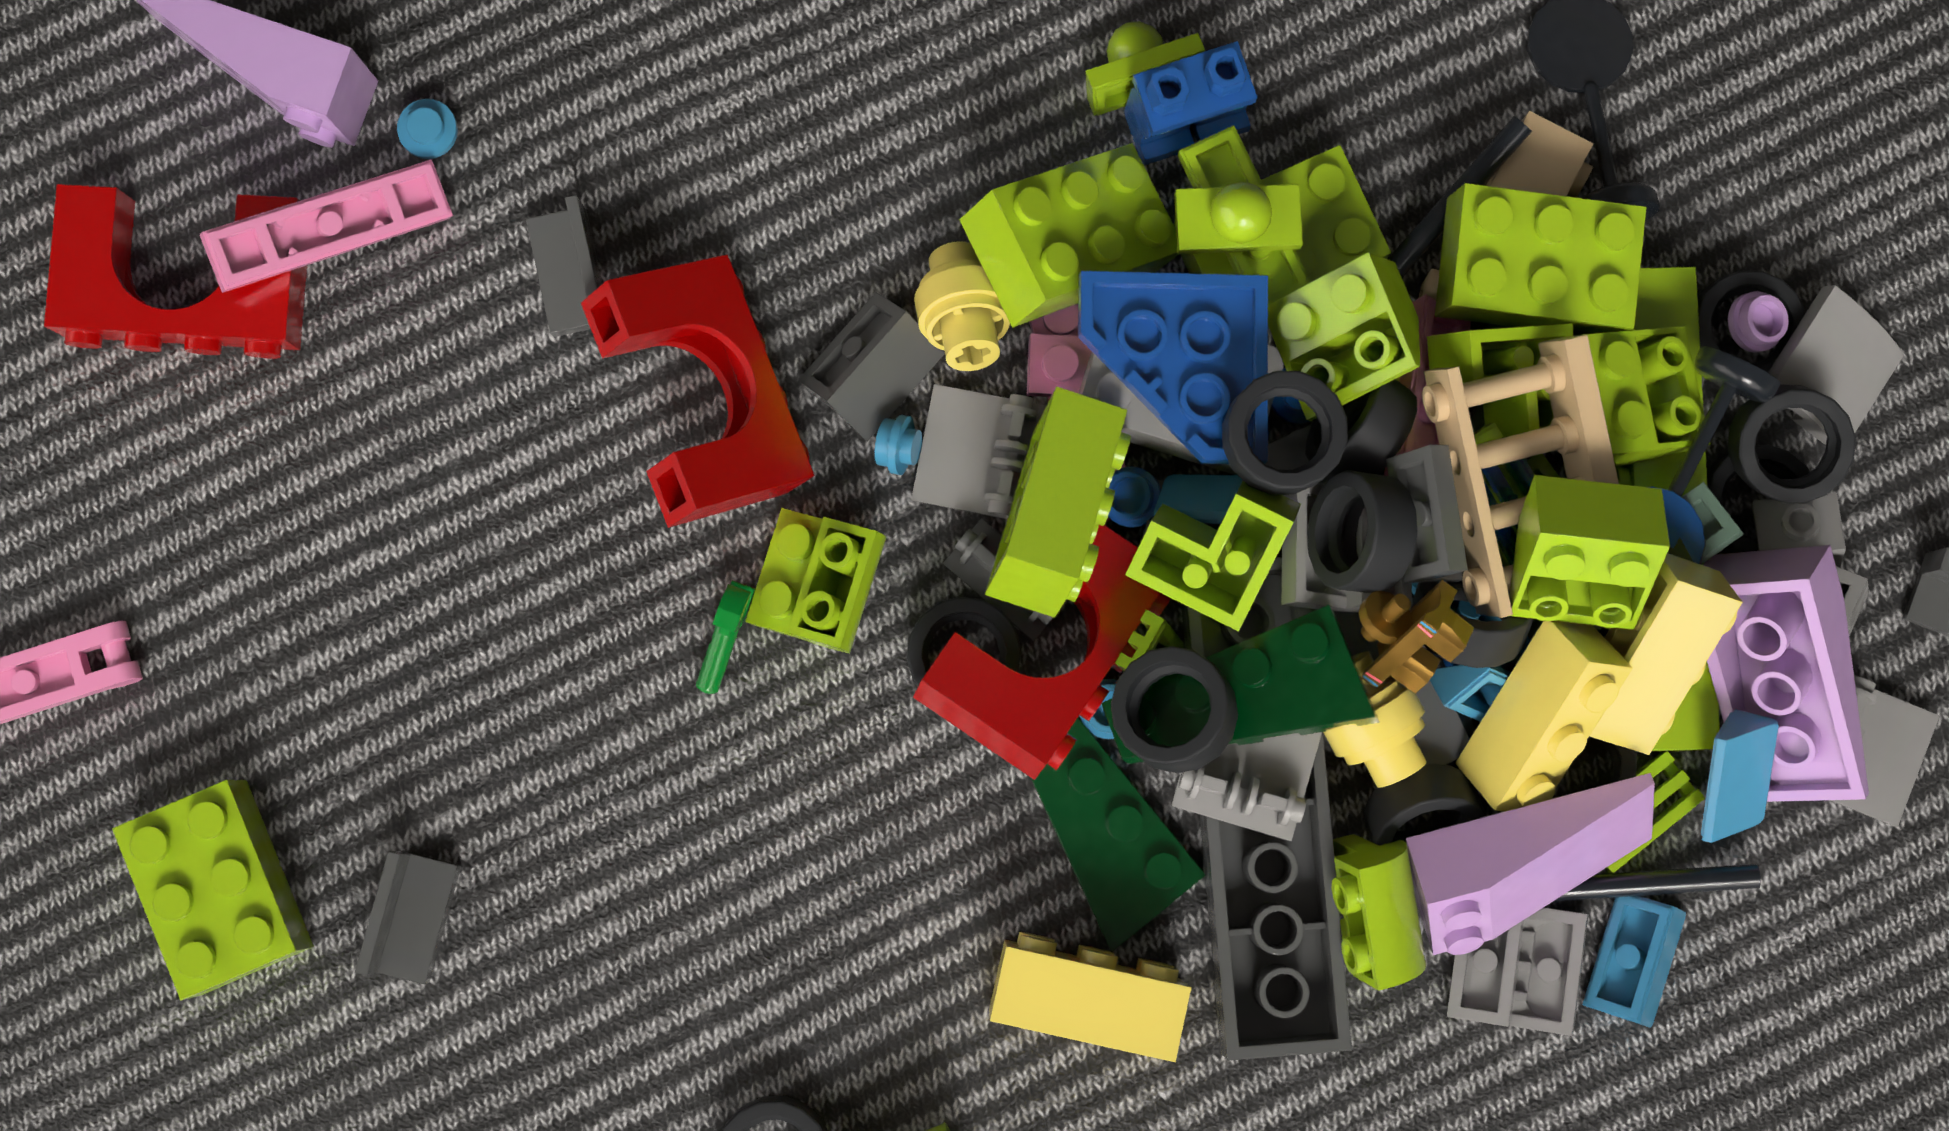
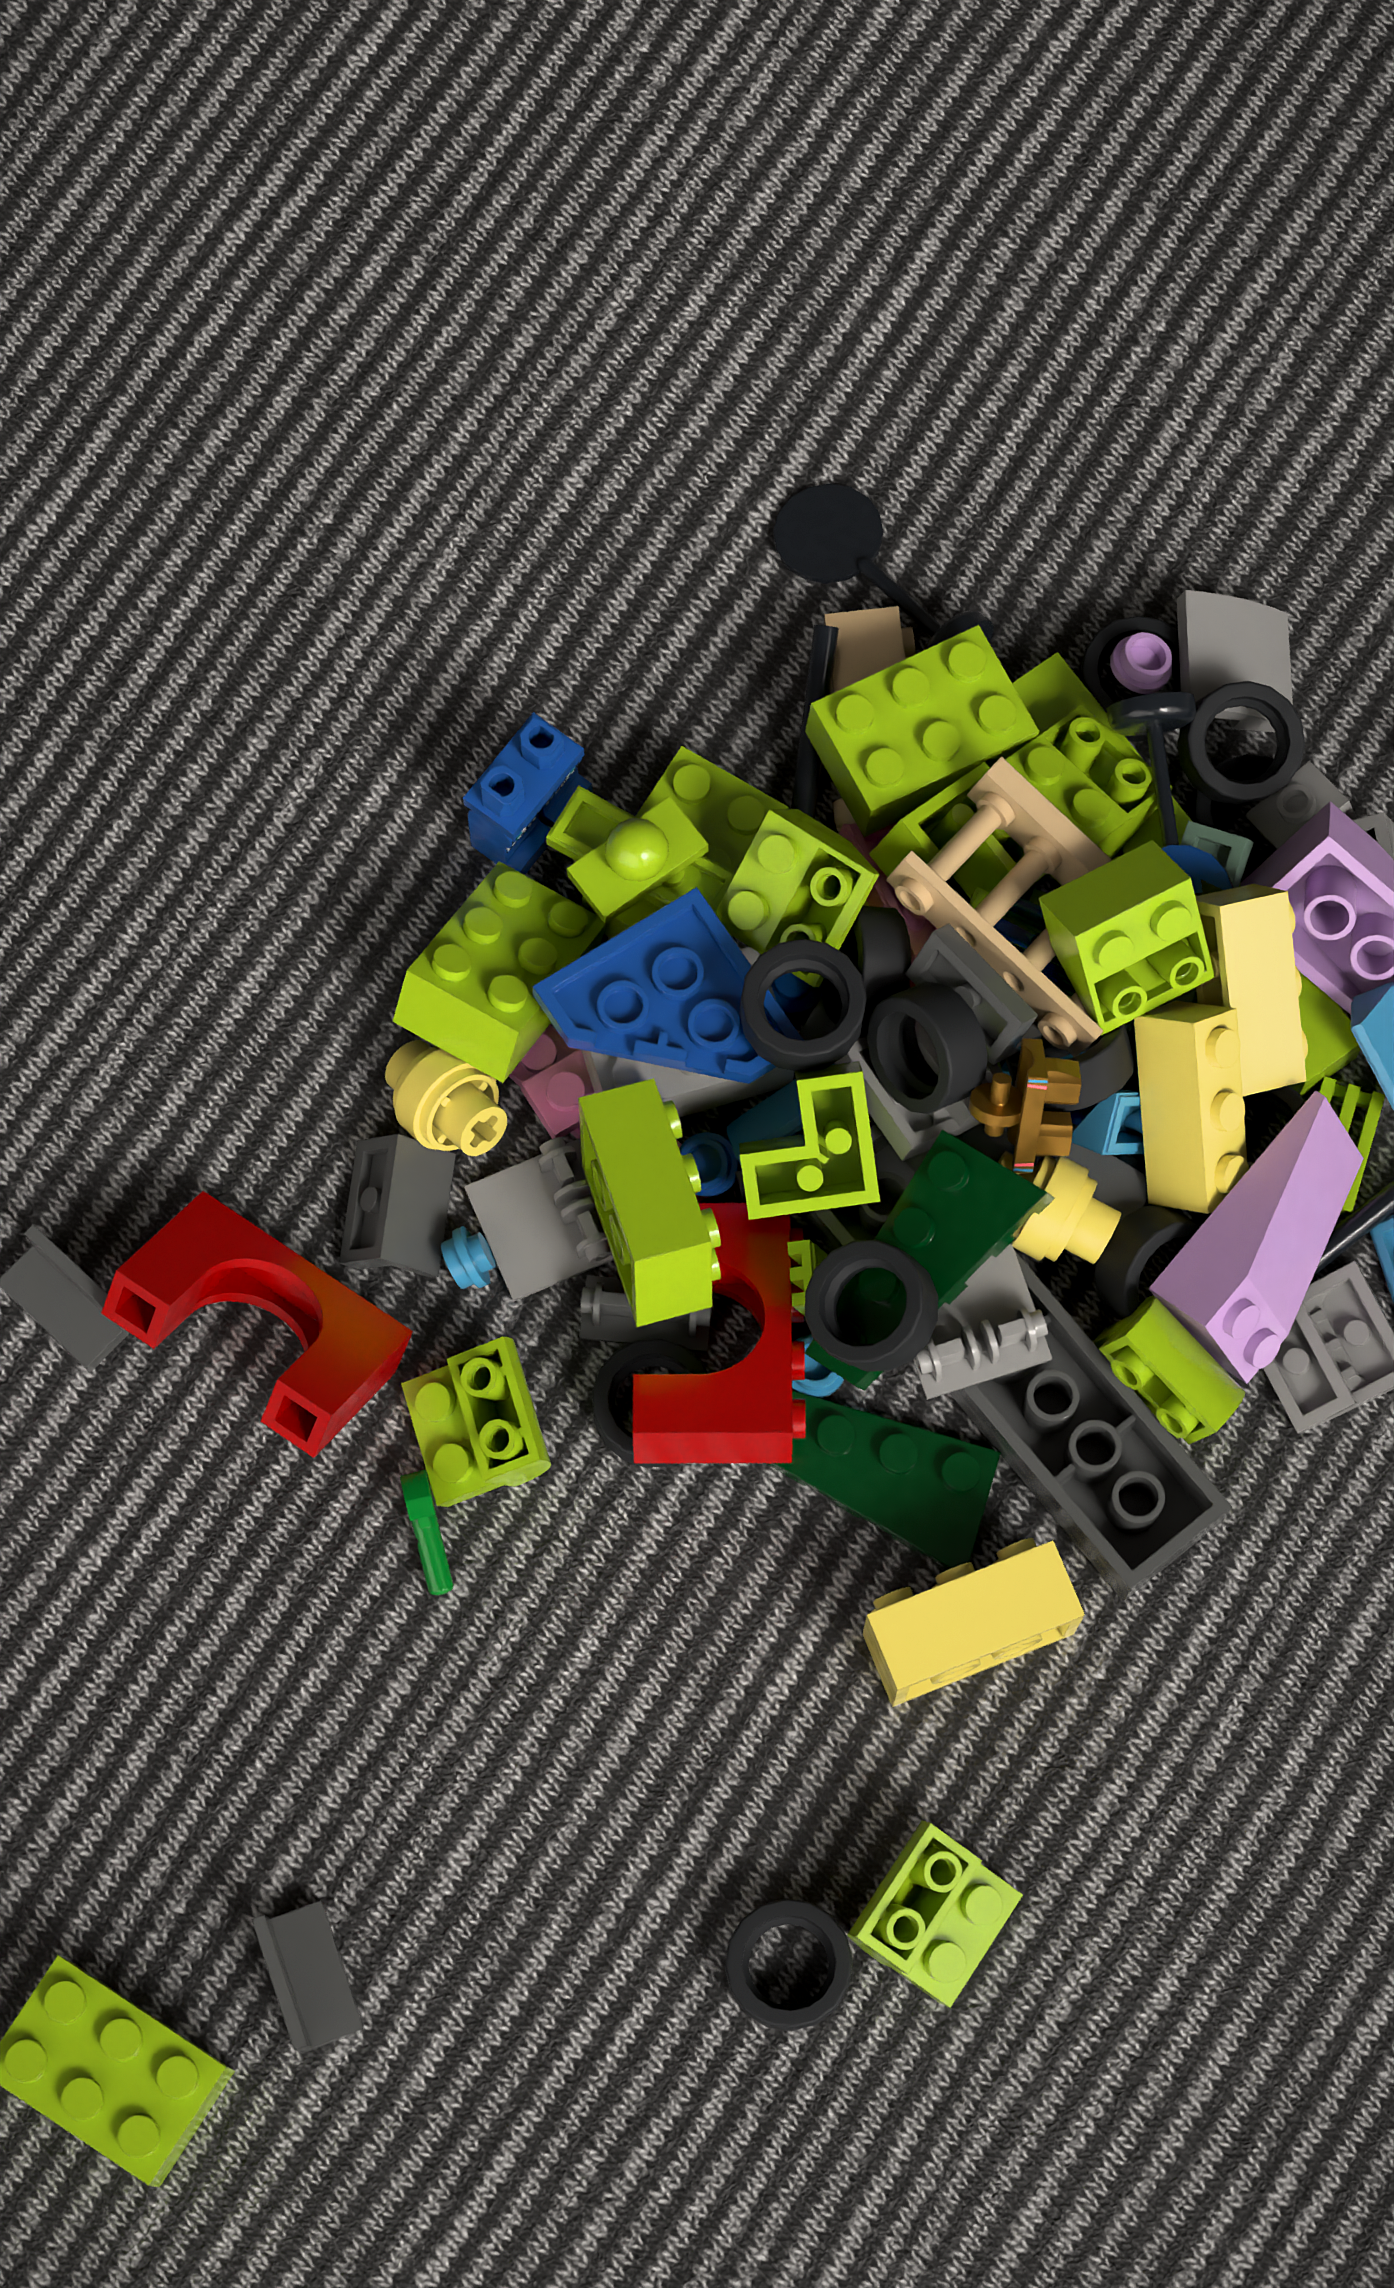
camera: 30 degrees left, 10 degrees down
(1130, 51) = (441, 789): lime tile -> none

